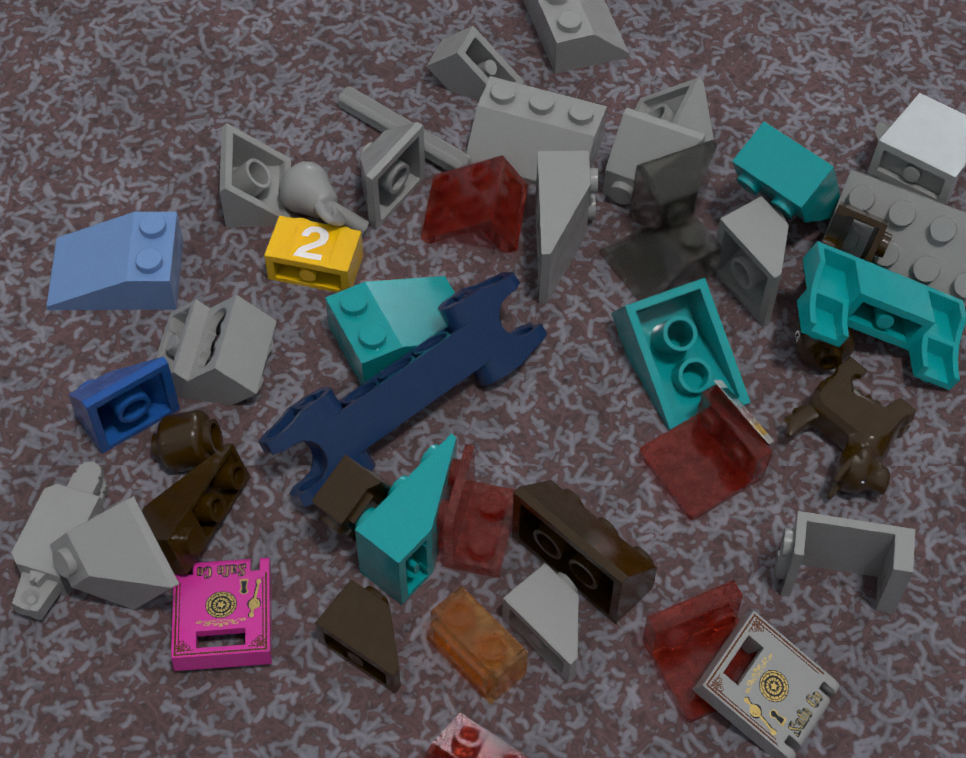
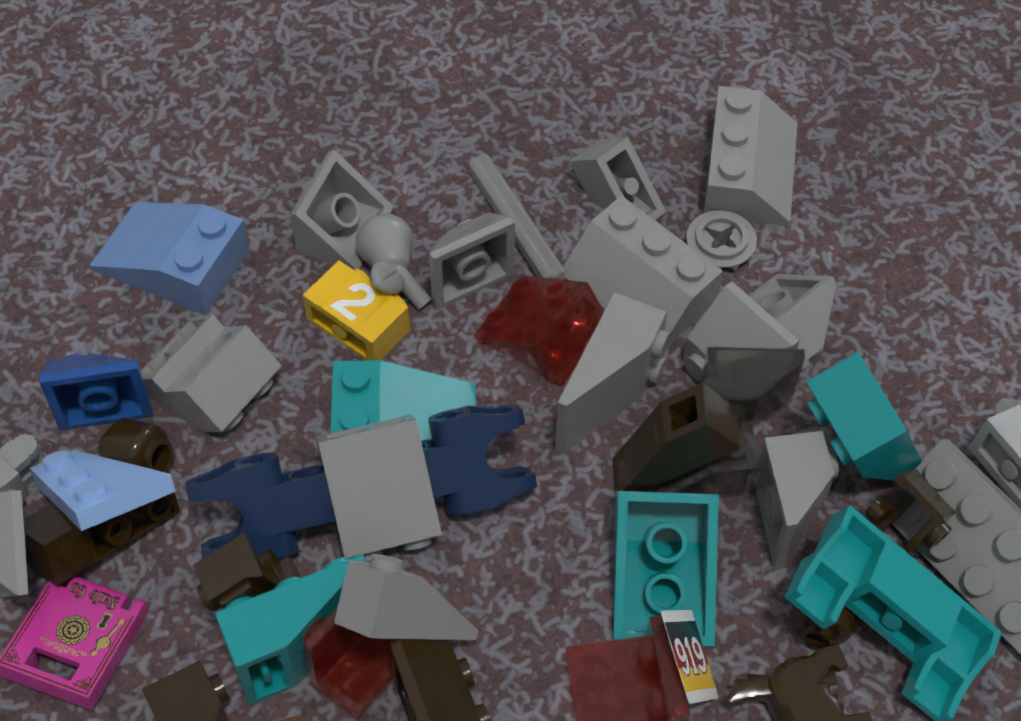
camera: 25 degrees right, 0 degrees up
(181, 478) = (96, 487): none -> light blue wing
(425, 380) = (379, 487): none -> light grey panel
(500, 459) = (396, 604): none -> light grey slope
(572, 76) = (716, 226): none -> light grey gear
(644, 251) = (677, 439): none -> dark brown slope

